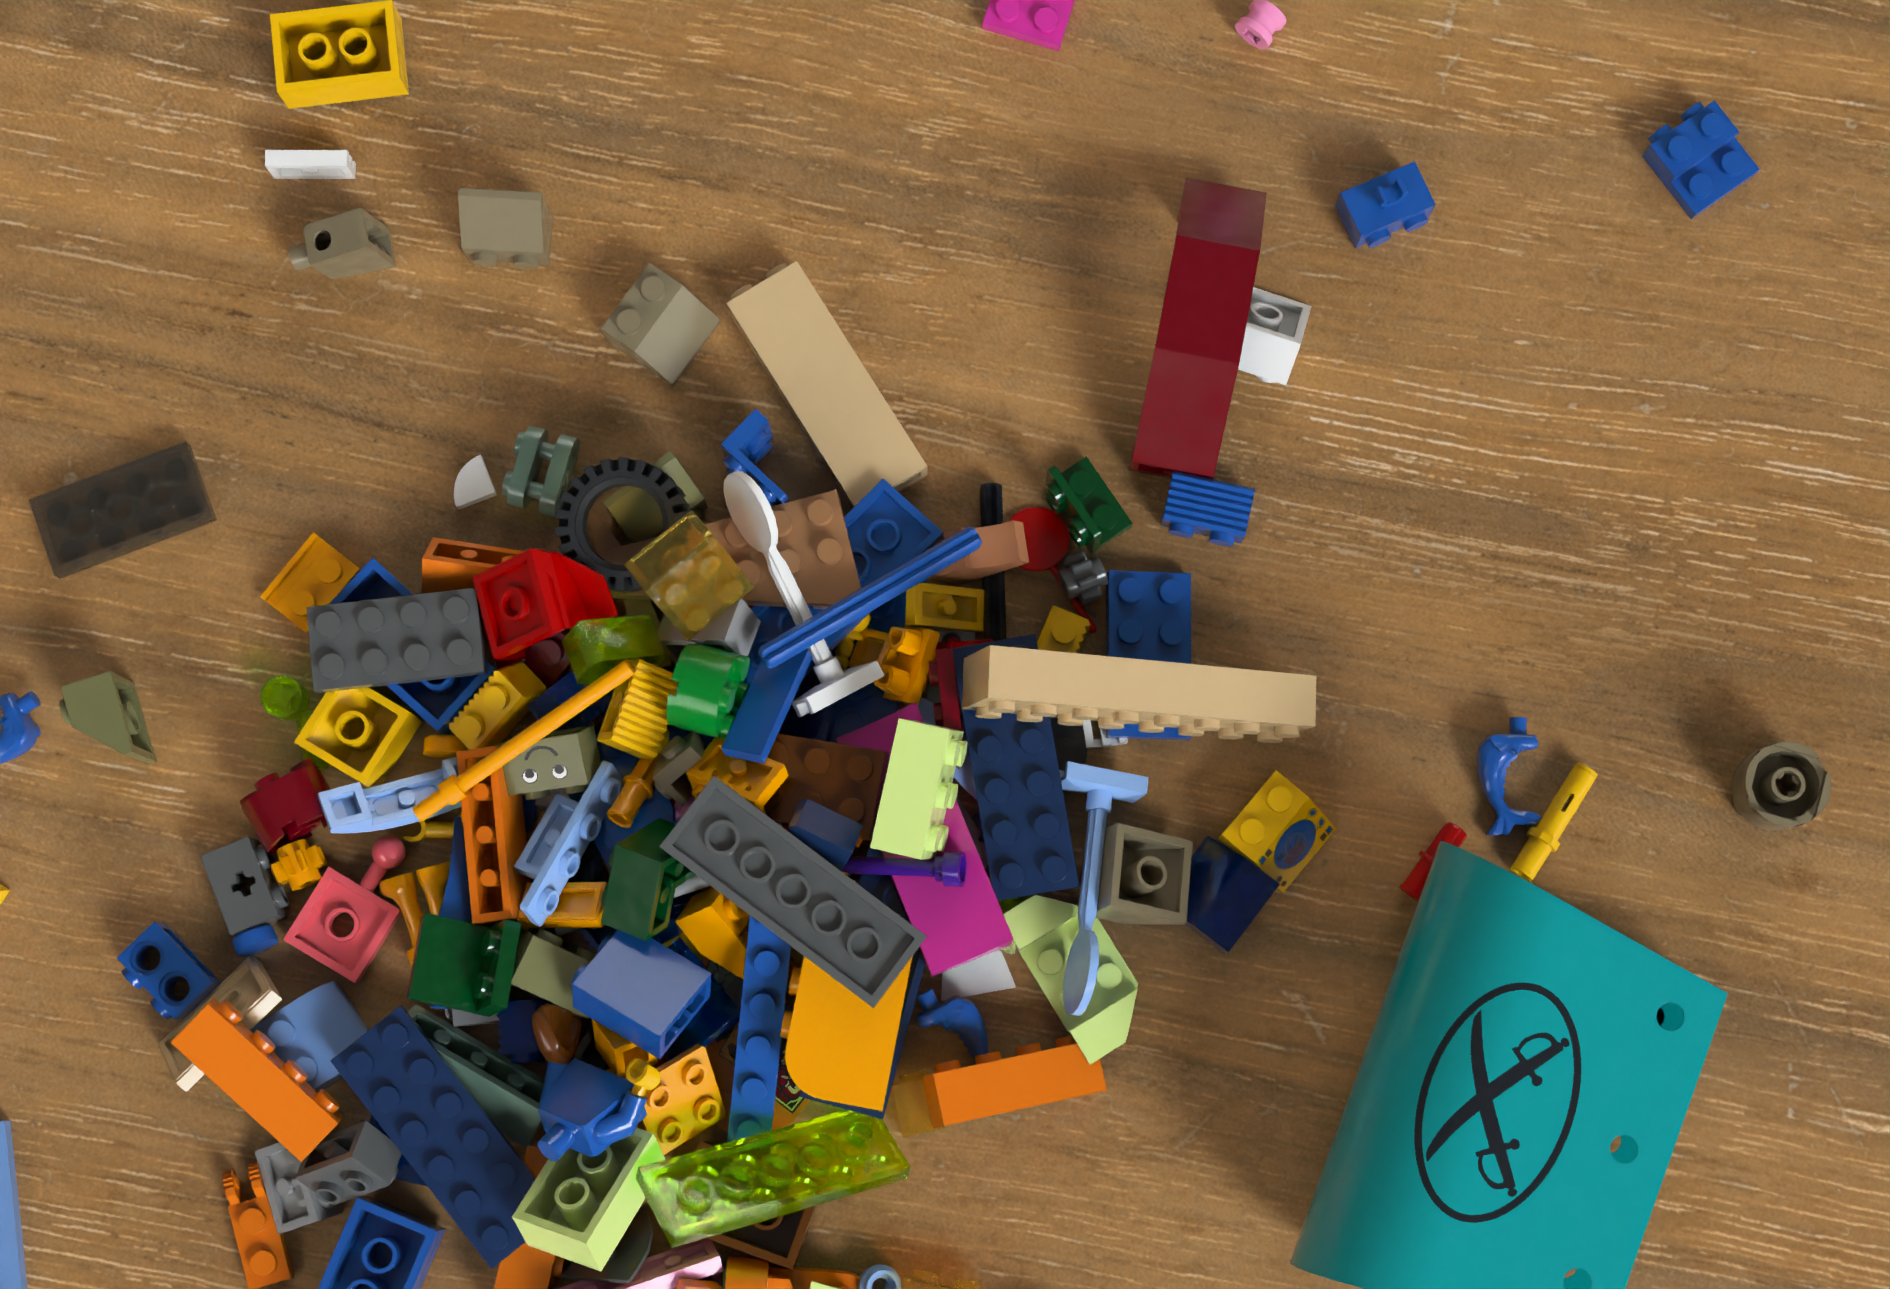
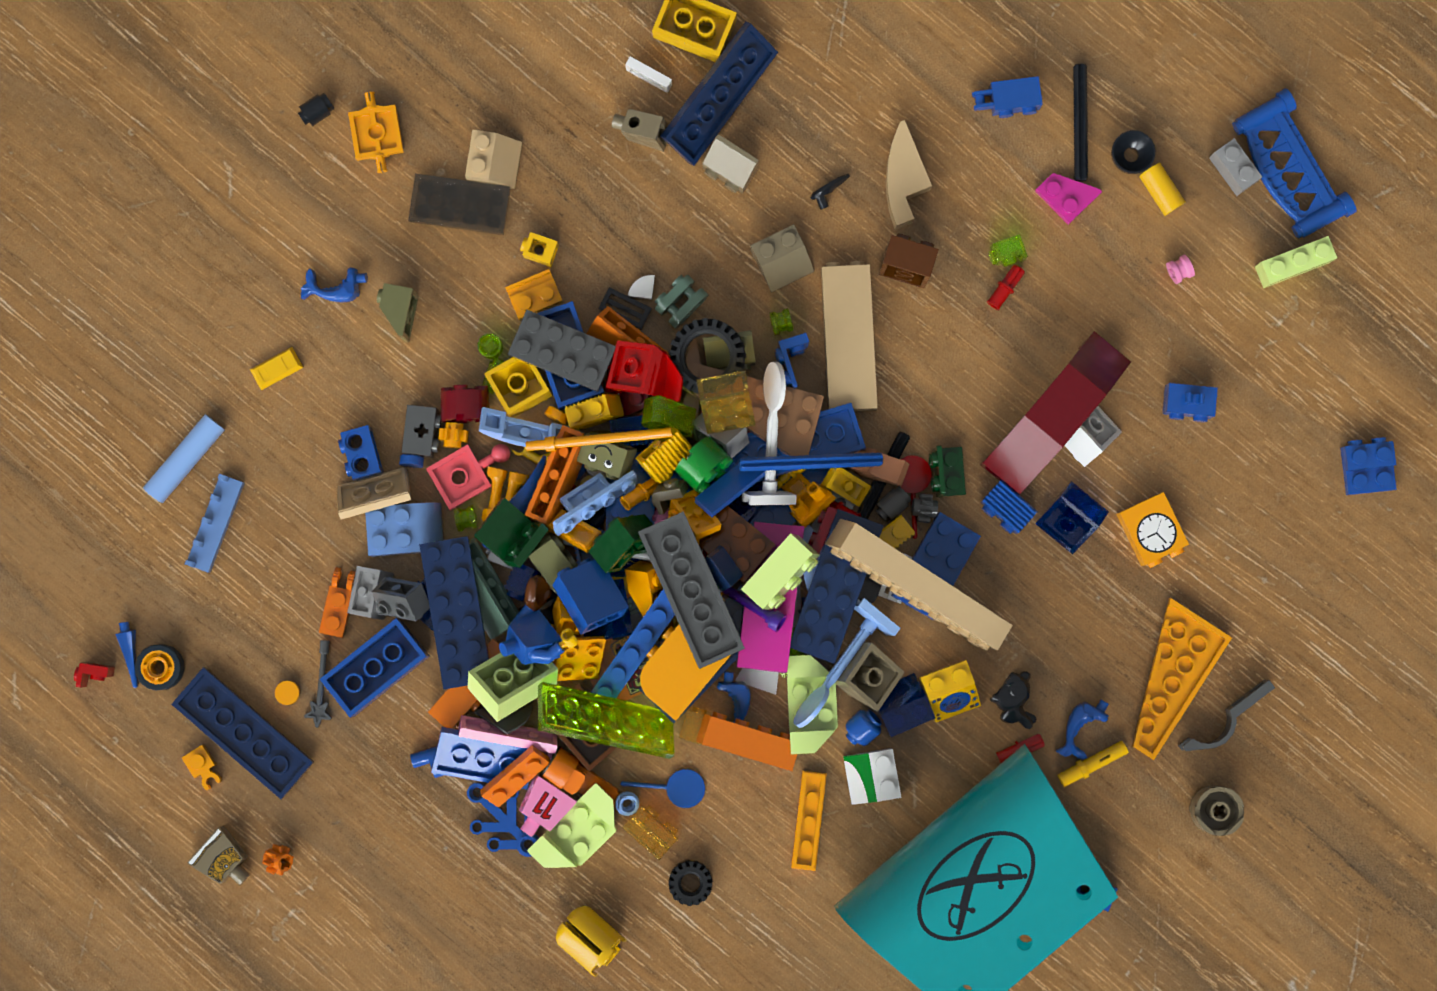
camera: 30 degrees right, 5 degrees up
(137, 413) = (493, 159): none -> tan slope
(257, 1078) = (379, 533): orange brick -> none
(271, 500) = (532, 242): none -> yellow brick
(386, 981) = (465, 518): none -> clear neon green wheel
(431, 134) = (719, 93): none -> dark blue plate
(498, 528) = (647, 309): none -> black tile
(674, 185) = (820, 194): none -> black bar
(711, 419) = (781, 321): none -> clear neon green wheel
(778, 109) = (904, 177): none -> tan slope
(851, 221) = (908, 260): none -> reddish brown brick
(954, 1213) = (683, 788): none -> blue piece
(992, 133) = (1007, 251): none -> clear neon green brick
(1019, 188) = (1006, 287): none -> red axle
(1032, 598) = (893, 504): none -> dark grey brick
(1175, 1153) = (808, 820): none -> light orange tile
(1177, 962) = (863, 727): none -> blue head
(1234, 1029) = (872, 776): none -> white slope
(1311, 471) = (1072, 517): none -> clear blue slope
(1376, 790) = (1012, 697): none -> black animal
(1441, 423) = (1153, 530): none -> light orange brick
(1599, 602) = (1181, 664): none -> light orange wing
(1716, 630) = (1232, 713): none -> dark grey piece

